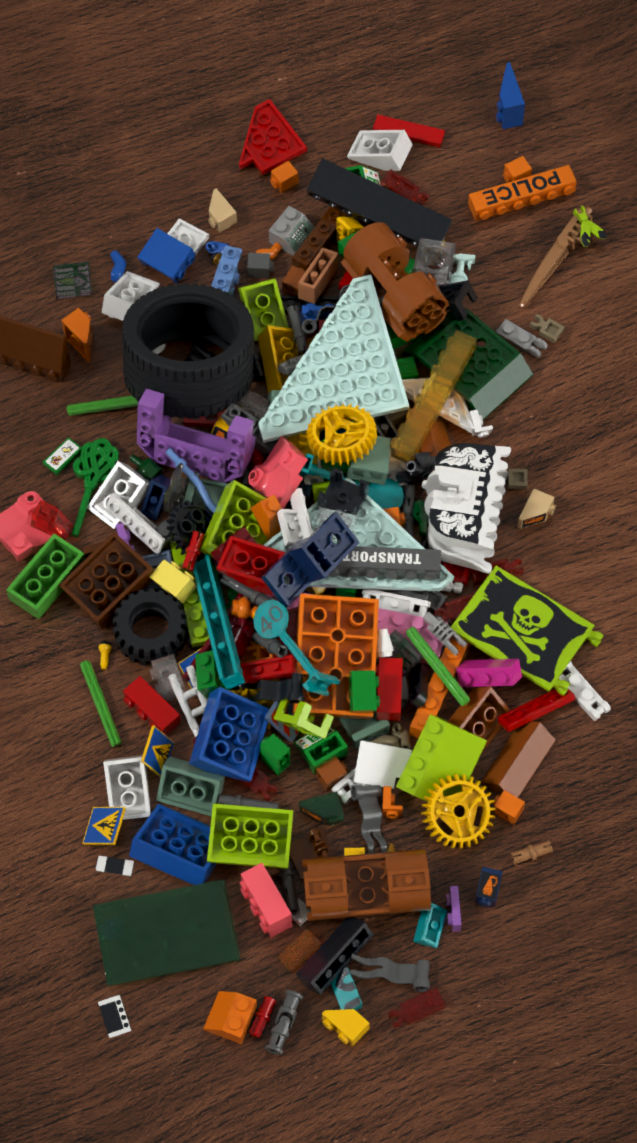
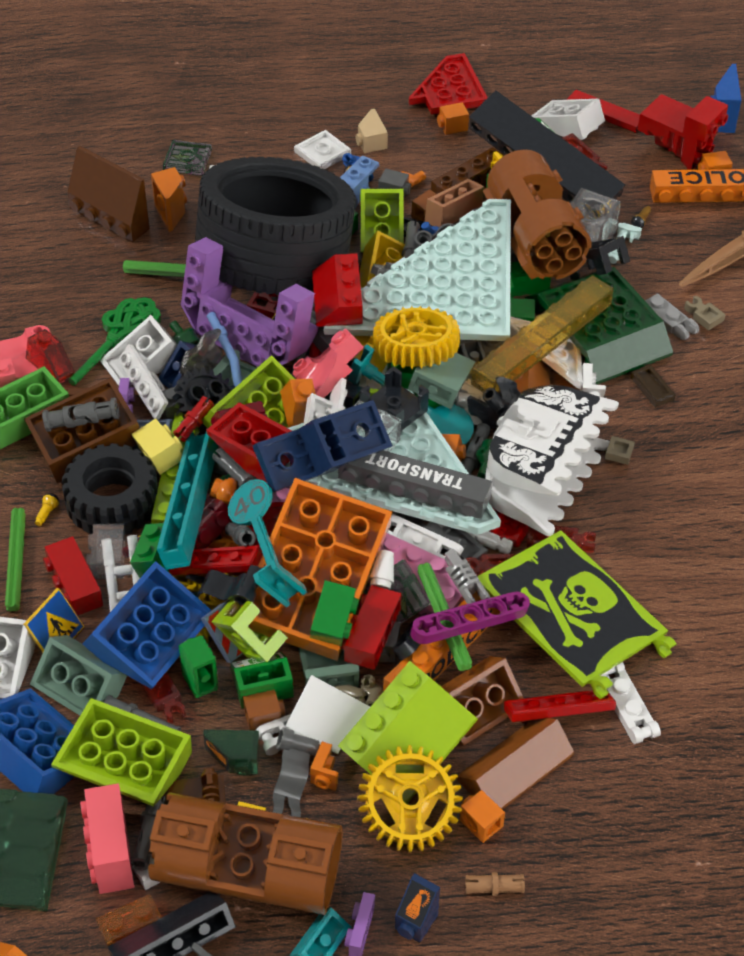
camera: 15 degrees right, 15 degrees down
(62, 456) = (96, 306): tile -> none
(110, 571) = (84, 413): none -> dark grey piece
(119, 265) = (243, 151): blue arm -> none
(167, 255) = (297, 146): blue panel -> none
(264, 405) = (338, 291): none -> red slope
(290, 230) = (438, 159): light grey slope -> none
(453, 671) = (462, 625): none -> magenta beam
(470, 245) = (640, 219): none -> piece
(483, 142) = (682, 128): none -> red brick
(489, 672) = (510, 643): dark pink brick -> none
(525, 410) = (652, 386): none -> dark brown tile
(536, 509) = (632, 486): tan slope -> none

